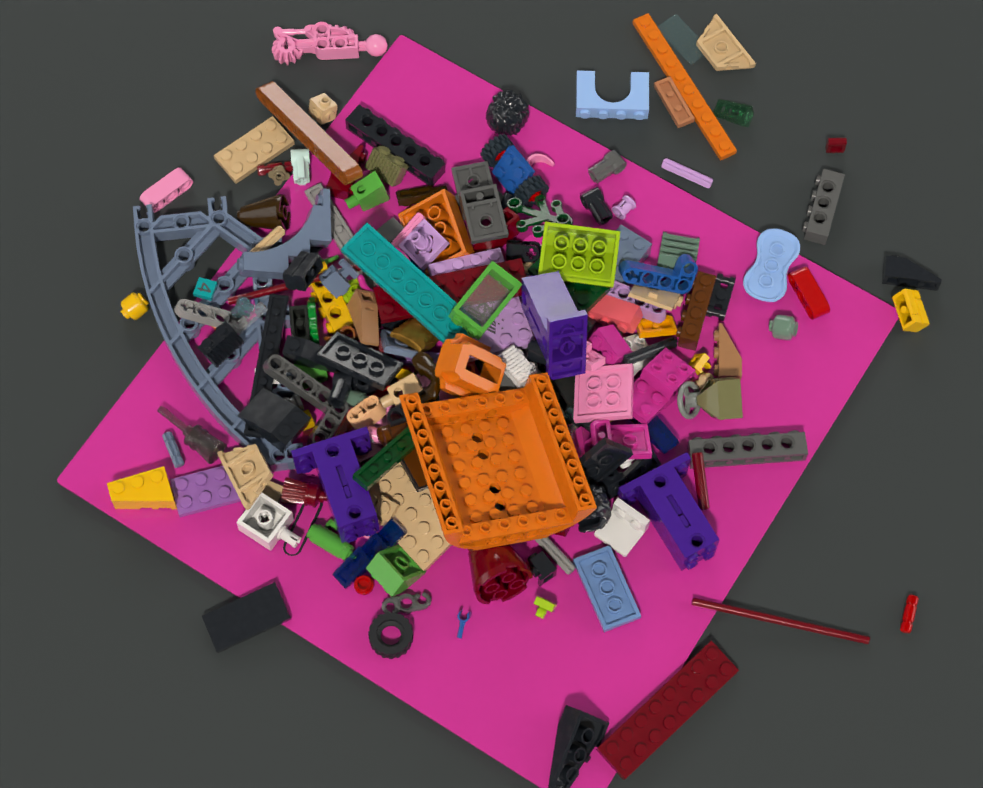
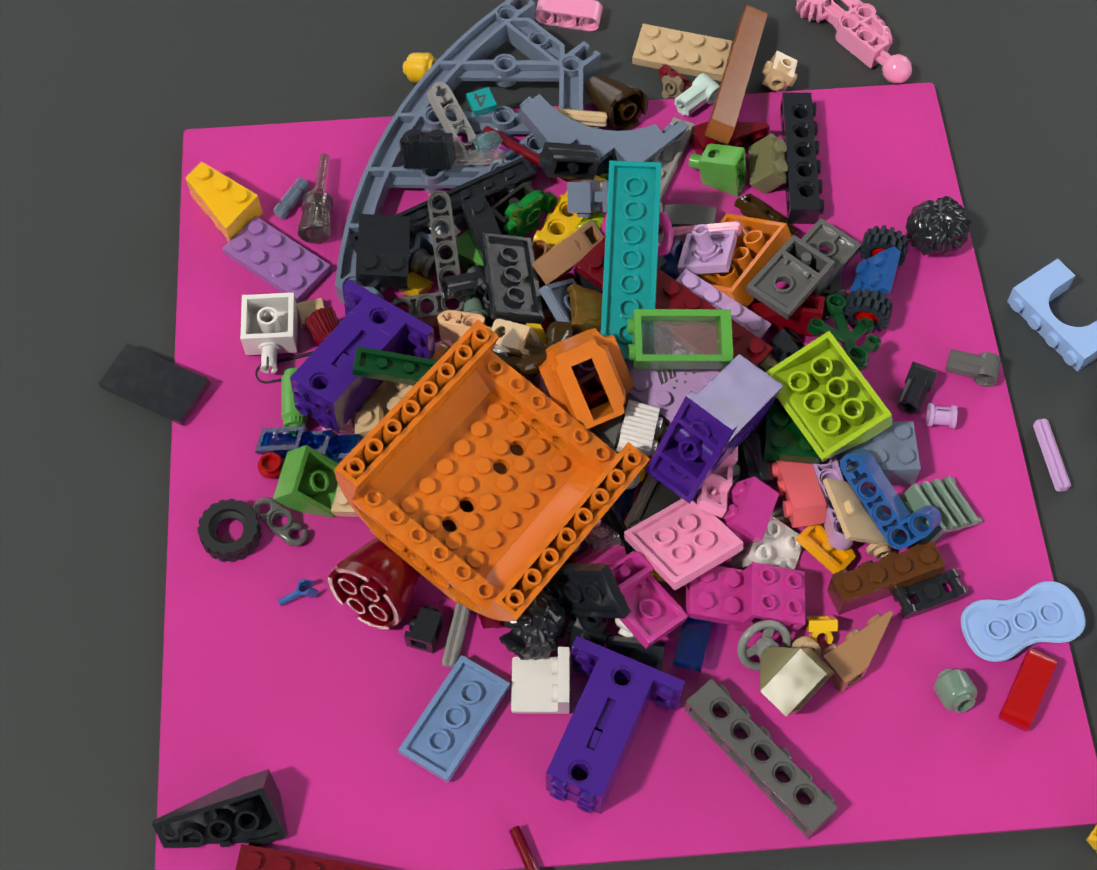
camera: 55 degrees right, 5 degrees down
(247, 472) = (305, 269): tan wing -> none
(540, 158) = (911, 290): bright pink helmet -> none
(544, 606) = (380, 664): lime tile -> none
(649, 351) = (783, 557): black axle -> none
(700, 480) = (671, 728): dark red axle -> none

